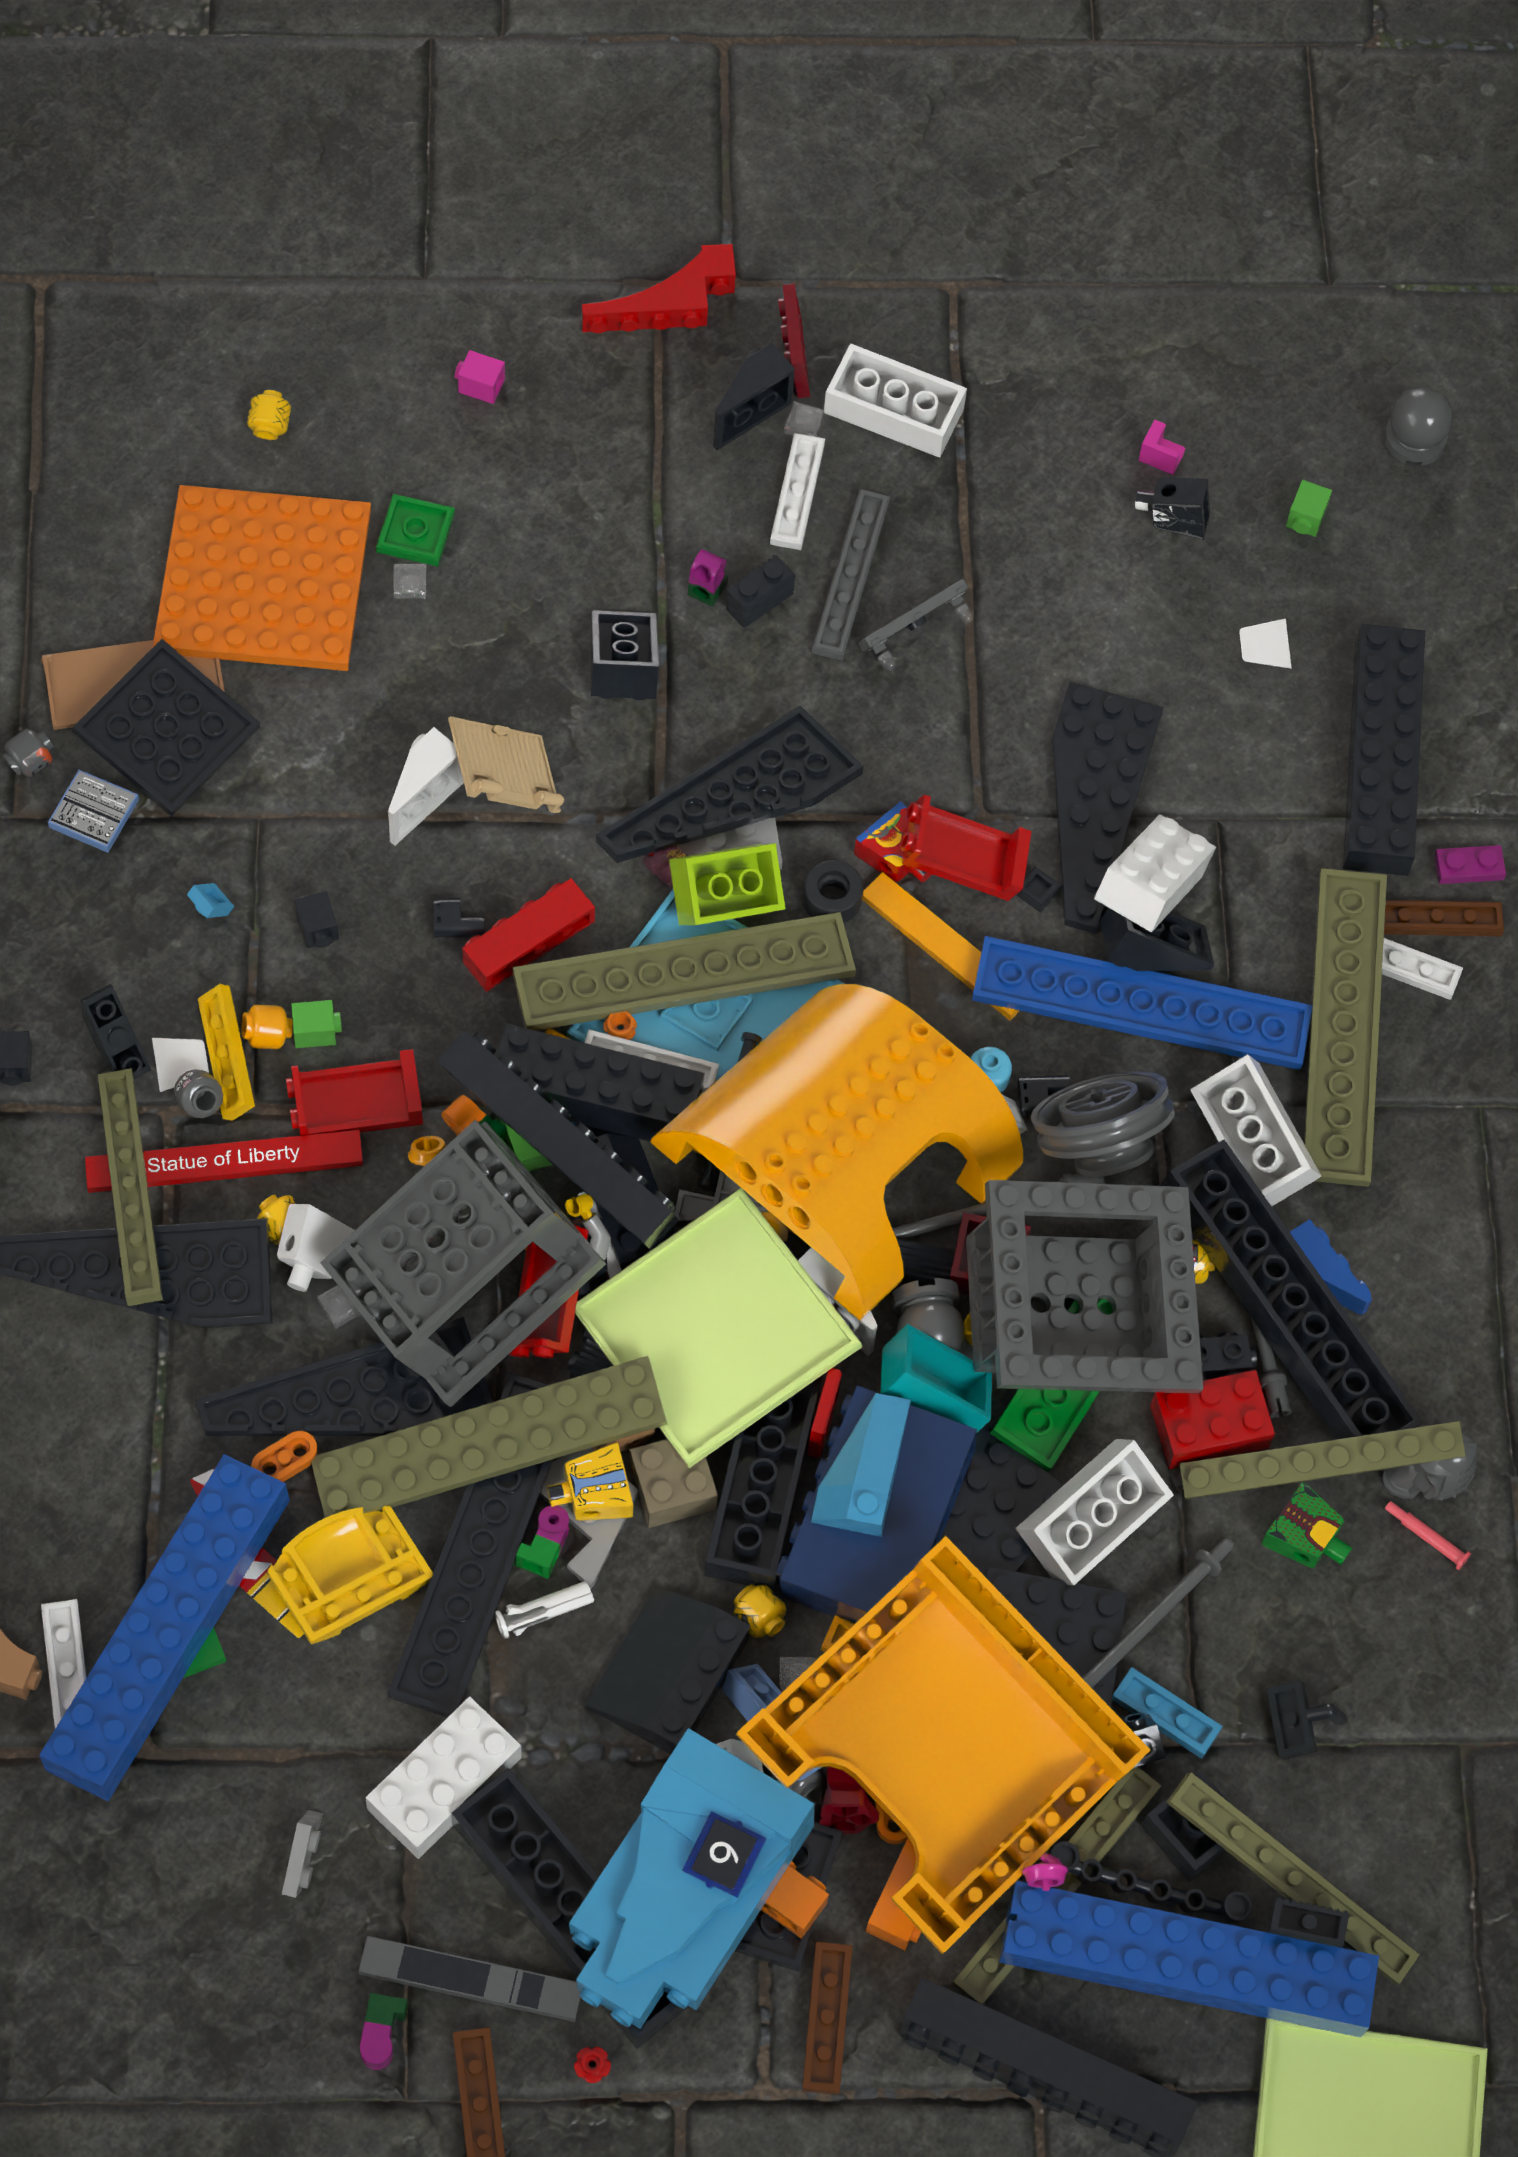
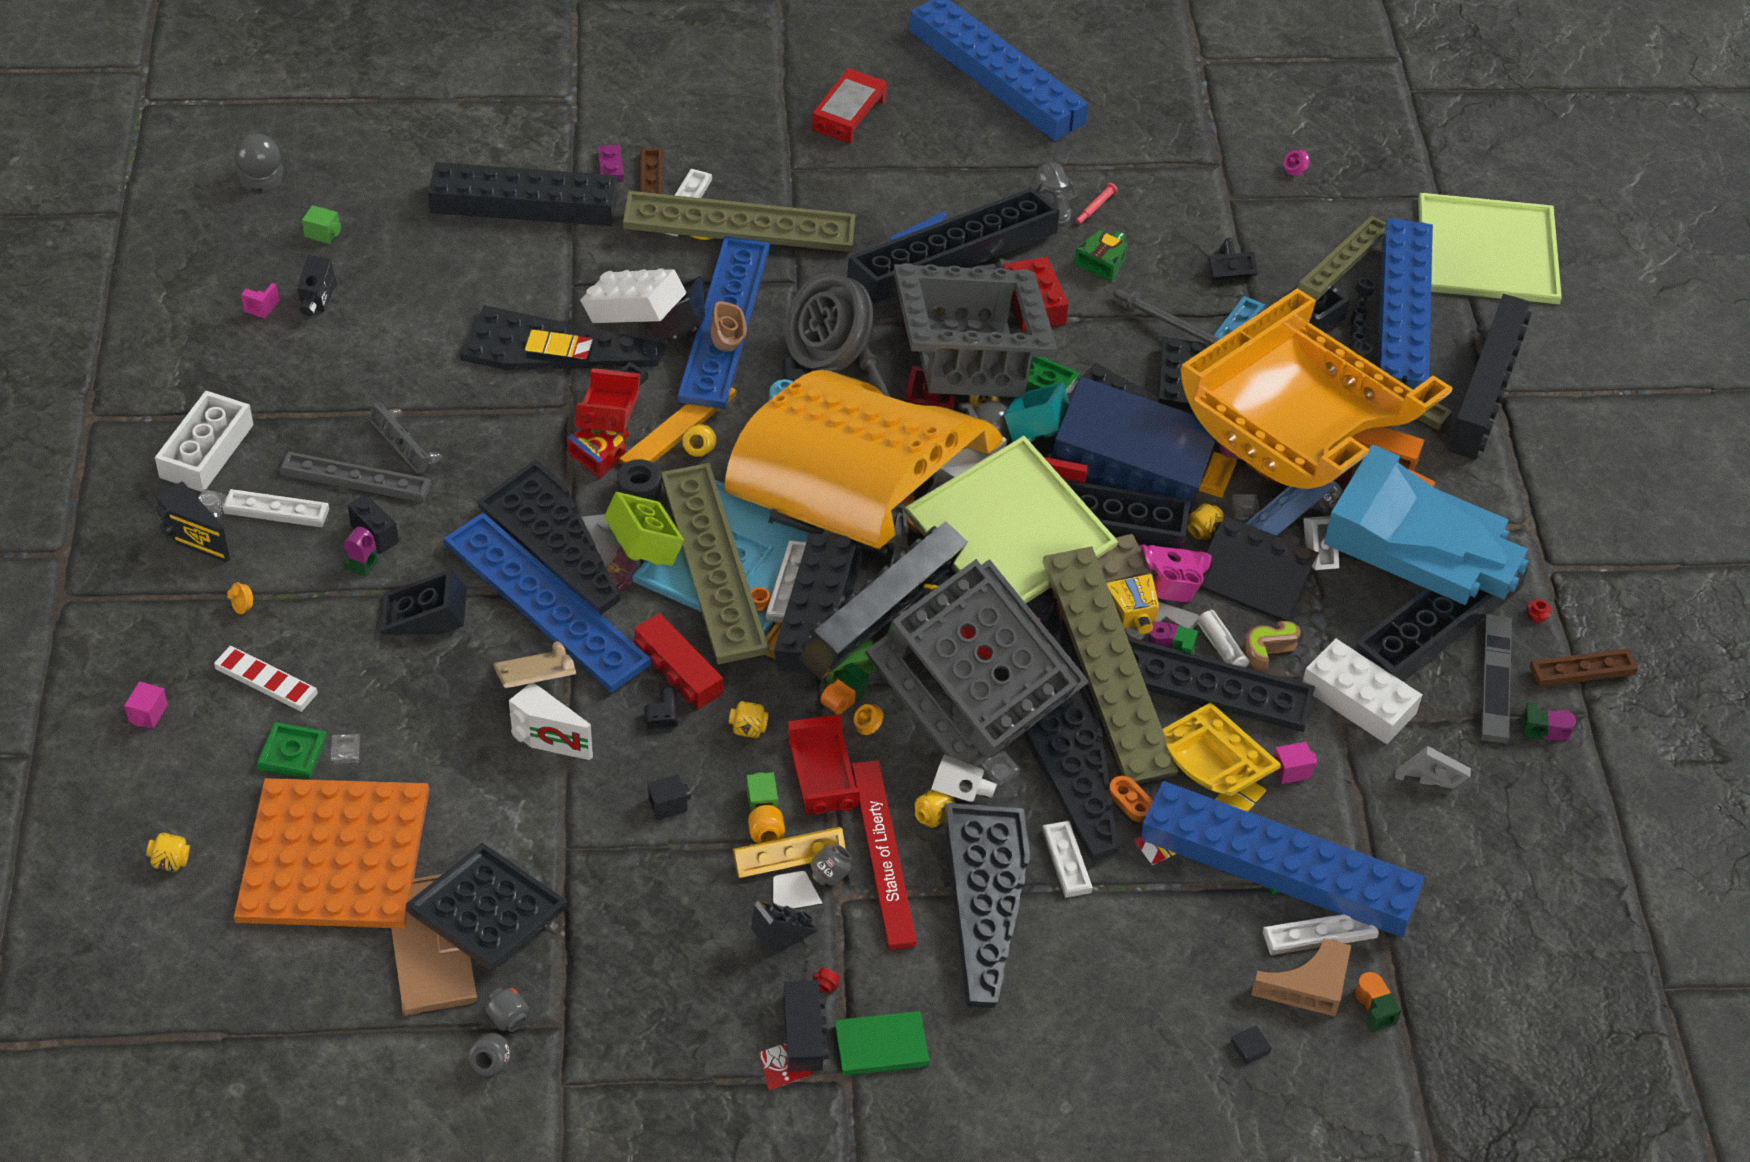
camera: 90 degrees left, 15 degrees down
(41, 1086) = (827, 980): none -> red plate
(93, 811) = (563, 959): tile -> none
(130, 1187) = (922, 897): olive plate -> none
(201, 1375) = (1067, 859): none -> white tile
(210, 900) = (651, 870): dark azure plate -> none
(329, 1671) = (1296, 762): none -> dark pink brick
(431, 1012) = (748, 719): none -> yellow head
(523, 496) = (265, 678): none -> white tile
(540, 1653) = (1268, 640): none -> medium nougat animal
(565, 836) = (547, 602): none -> blue plate
(642, 458) = (240, 597): none -> light orange hat
(665, 1517) = (1176, 579): none -> dark pink piece
(671, 303) = (84, 575): red arch -> none
(724, 1854) = (1416, 492): piece -> none
(794, 338) = (134, 494): dark red plate -> none
(827, 2018) = (1482, 488): reddish brown plate -> none
(862, 1476) = (1126, 430): dark azure wedge -> none
(904, 962) = (691, 438): none -> yellow head
(1045, 1874) = (1378, 352): dark pink hat -> none
(1084, 794) = (558, 344): none -> yellow sticker
(1094, 1511) = (1112, 344): white brick -> none
(1103, 989) = (727, 326): none -> medium nougat piece
(1257, 1128) = (821, 254): white brick -> none
(1266, 644) = (429, 256): white sticker -> none
(1308, 1922) = (1377, 242): black brick -> none
(1322, 1460) = (1064, 232): olive plate -> none

